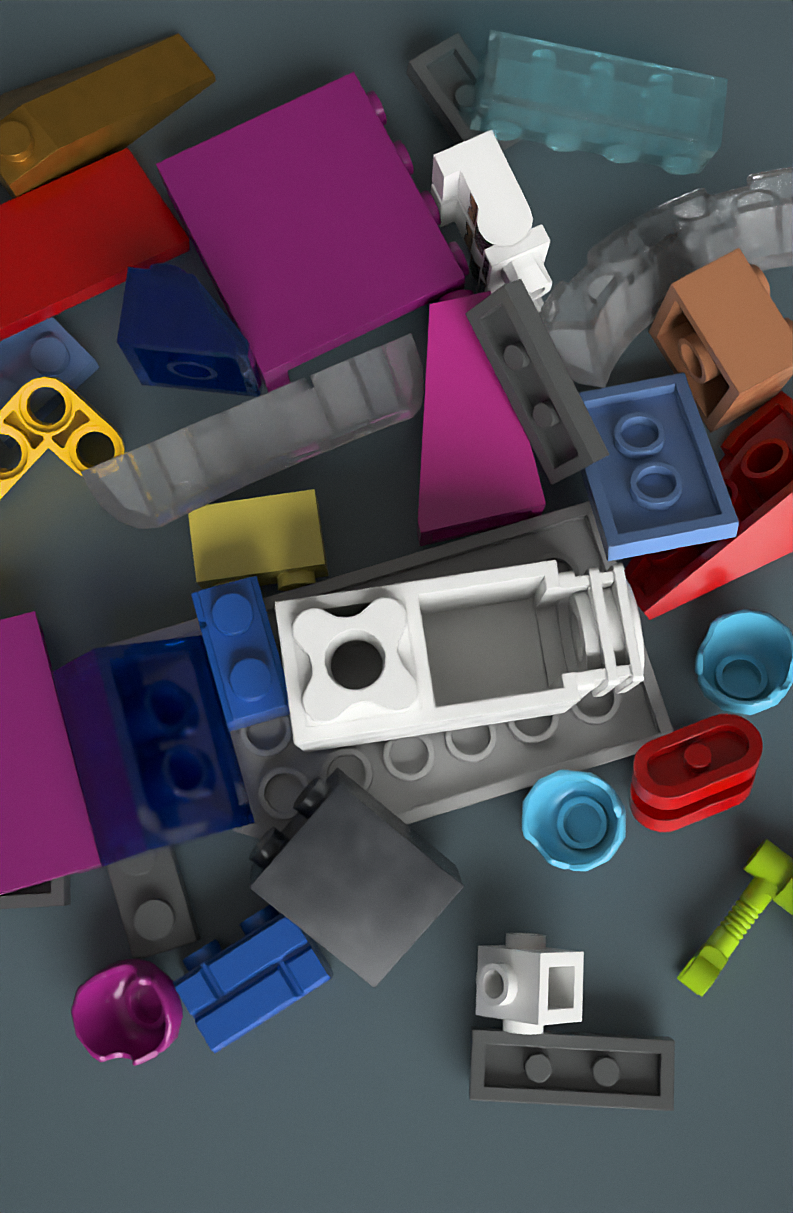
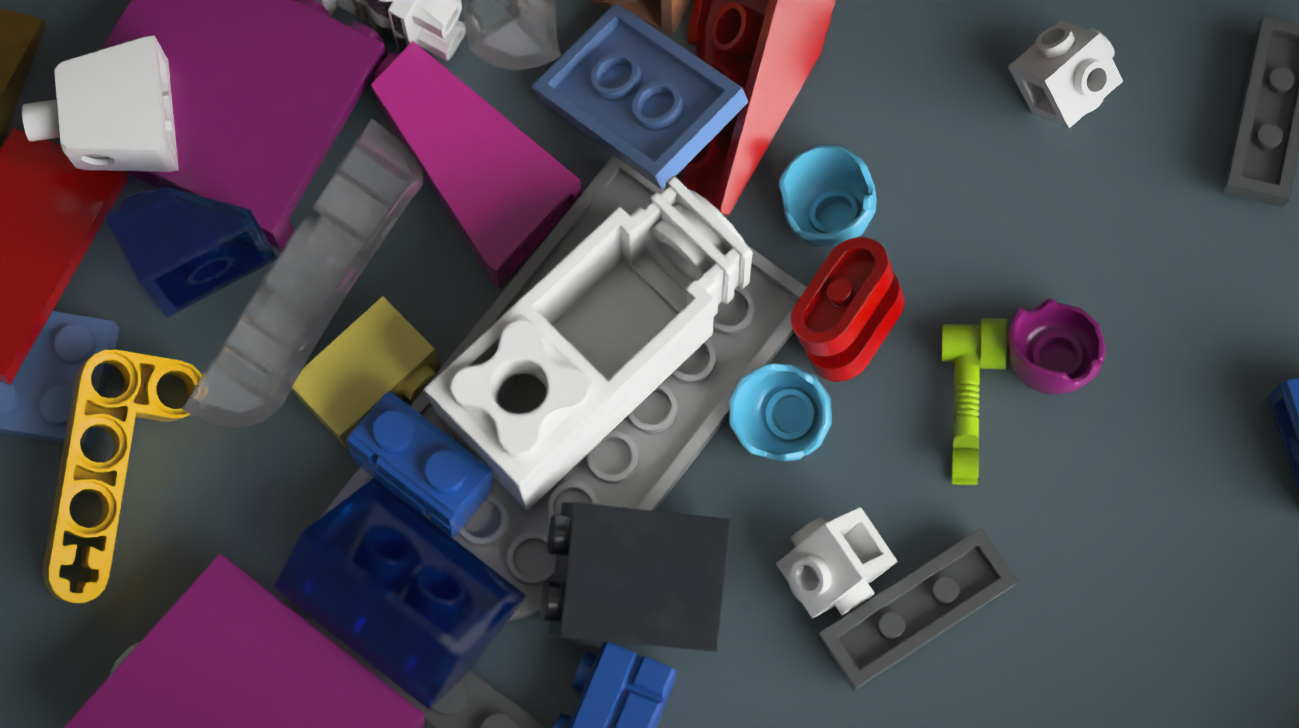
camera: 35 degrees left, 5 degrees down
(203, 181) = (111, 110): none -> white torso
(536, 382) = (504, 87): dark grey plate -> none

